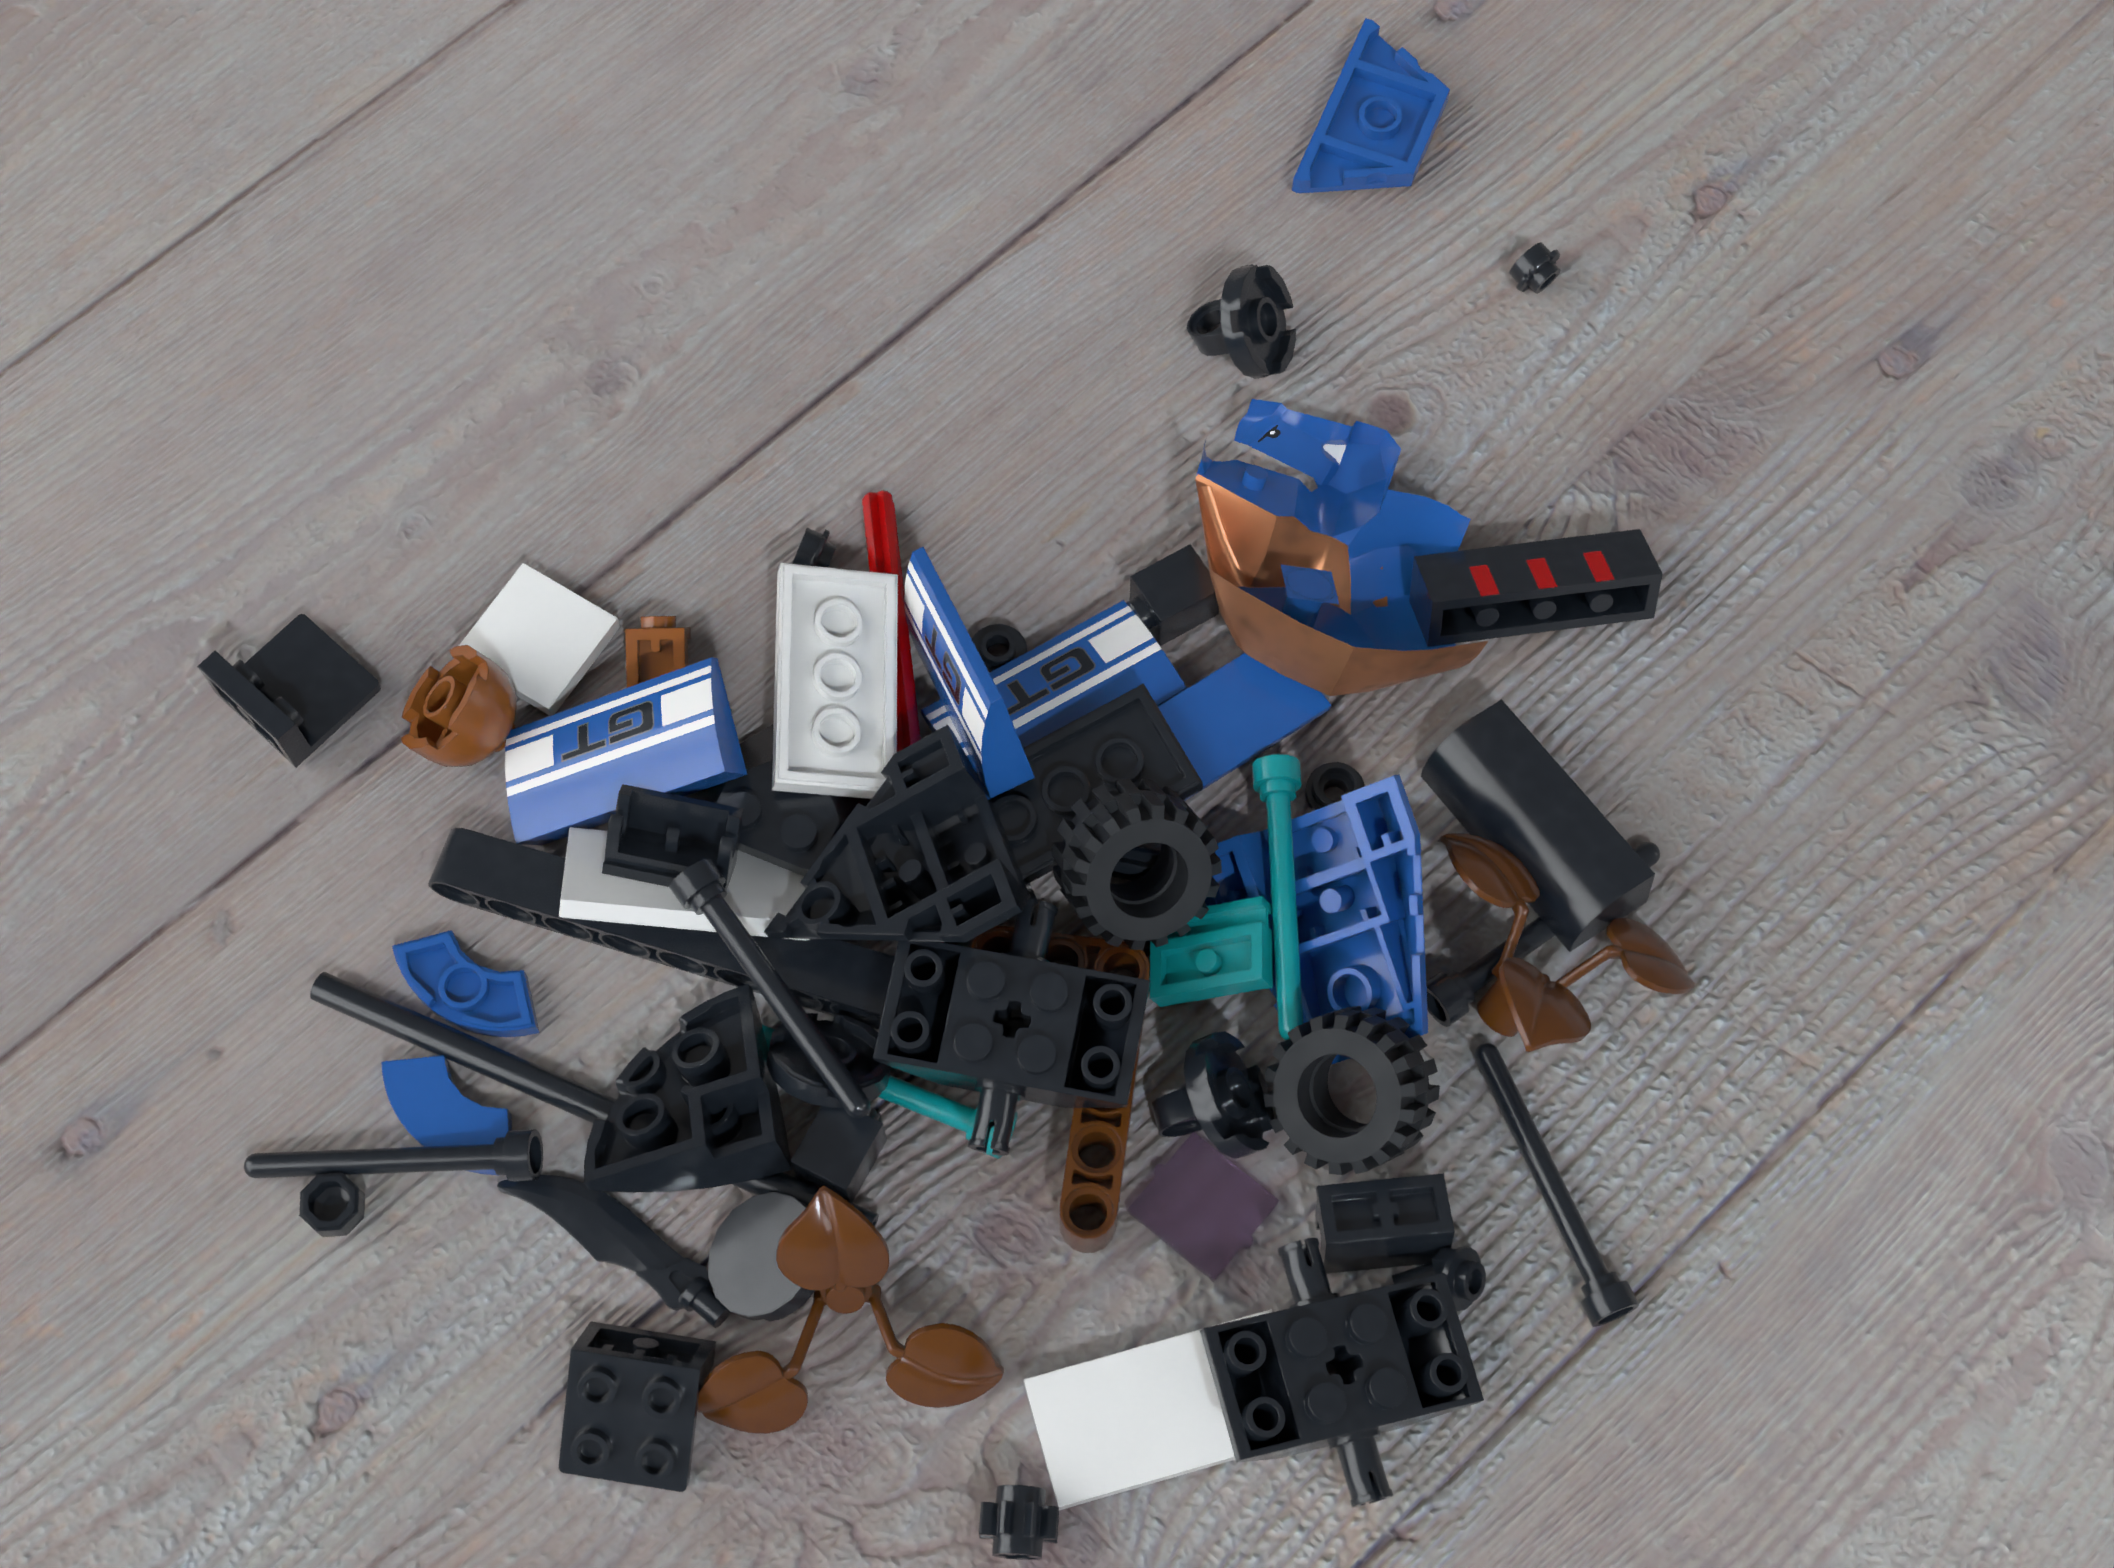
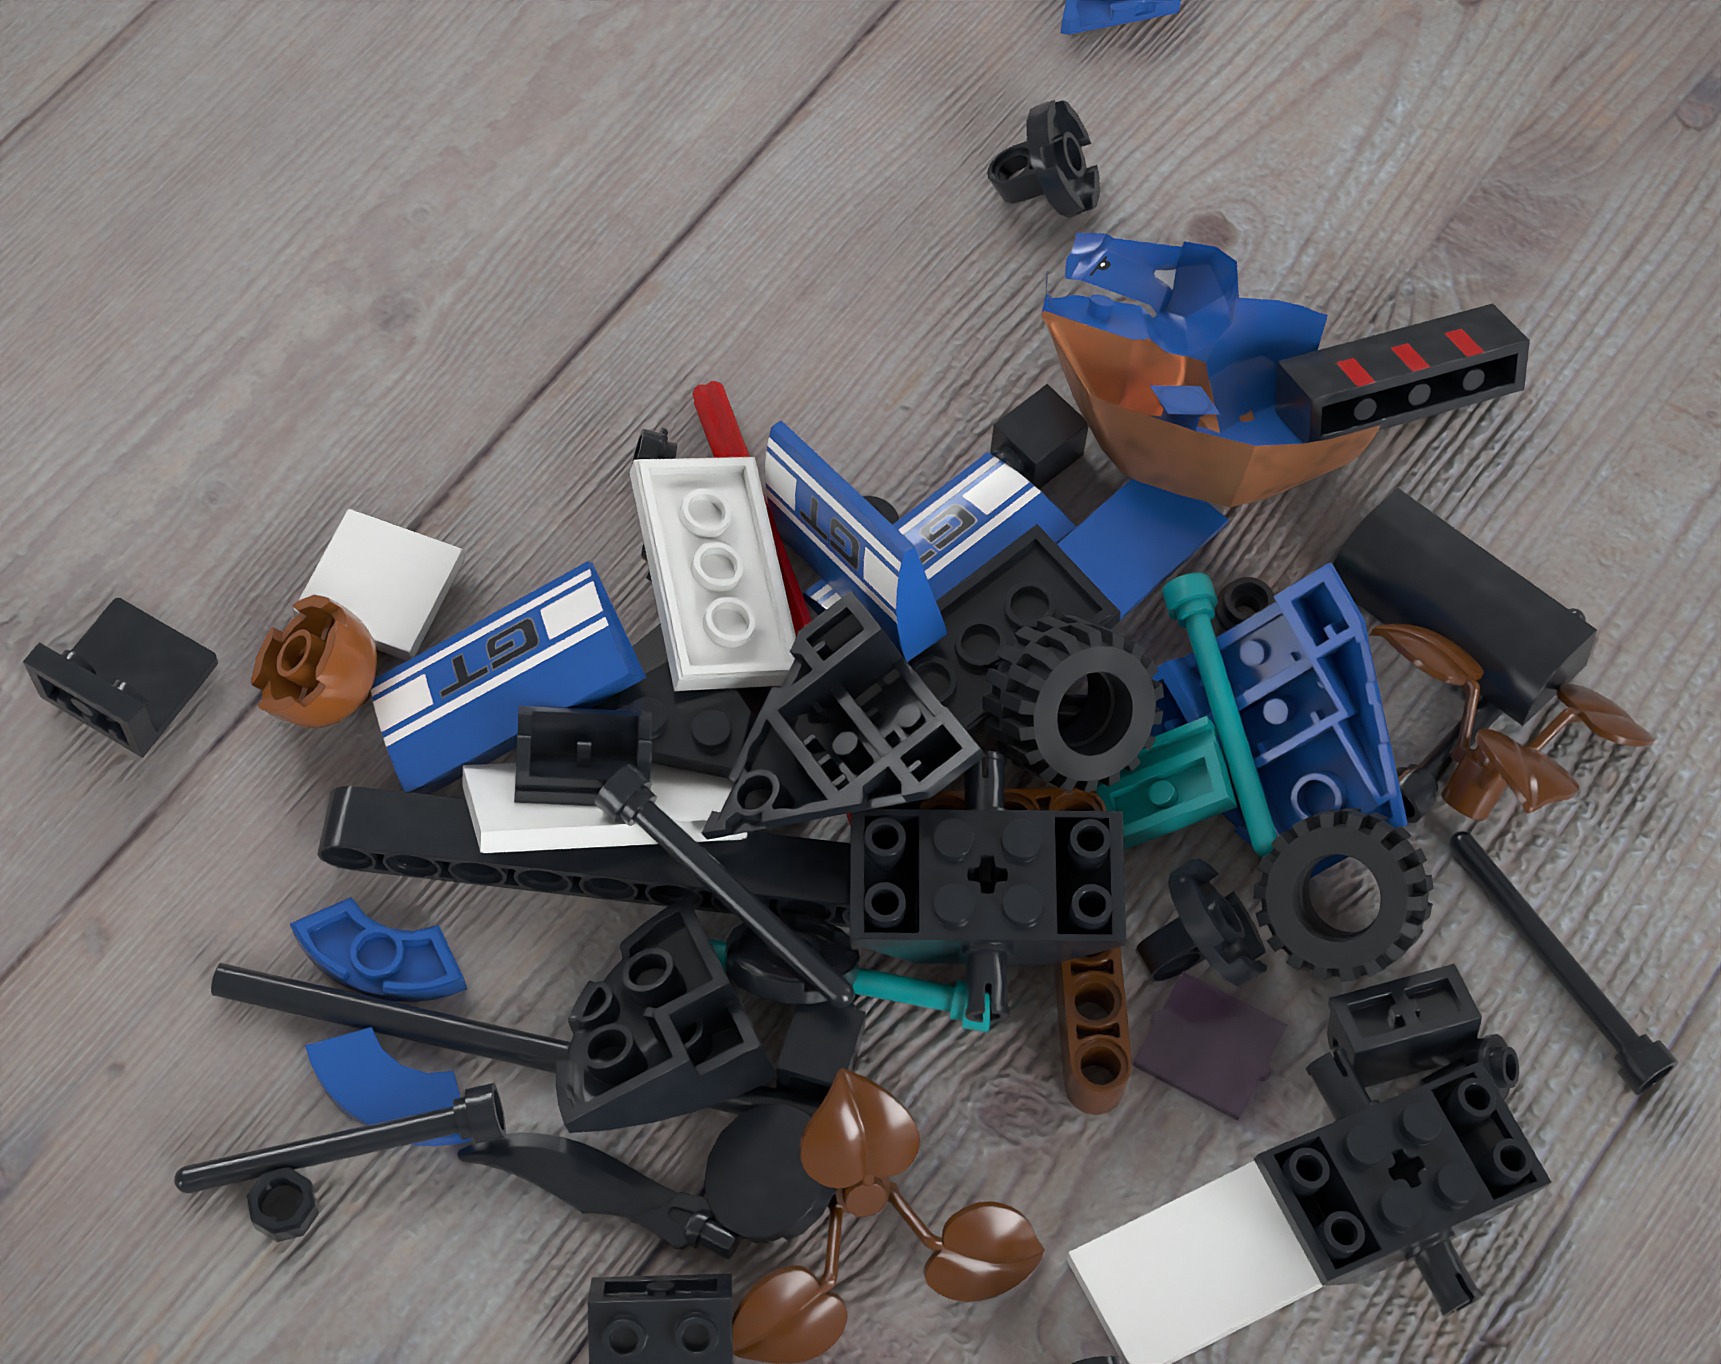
camera: 15 degrees left, 5 degrees down
(655, 648) = (509, 572): dark orange bracket -> none
(1536, 268) = (1323, 73): black plate -> none

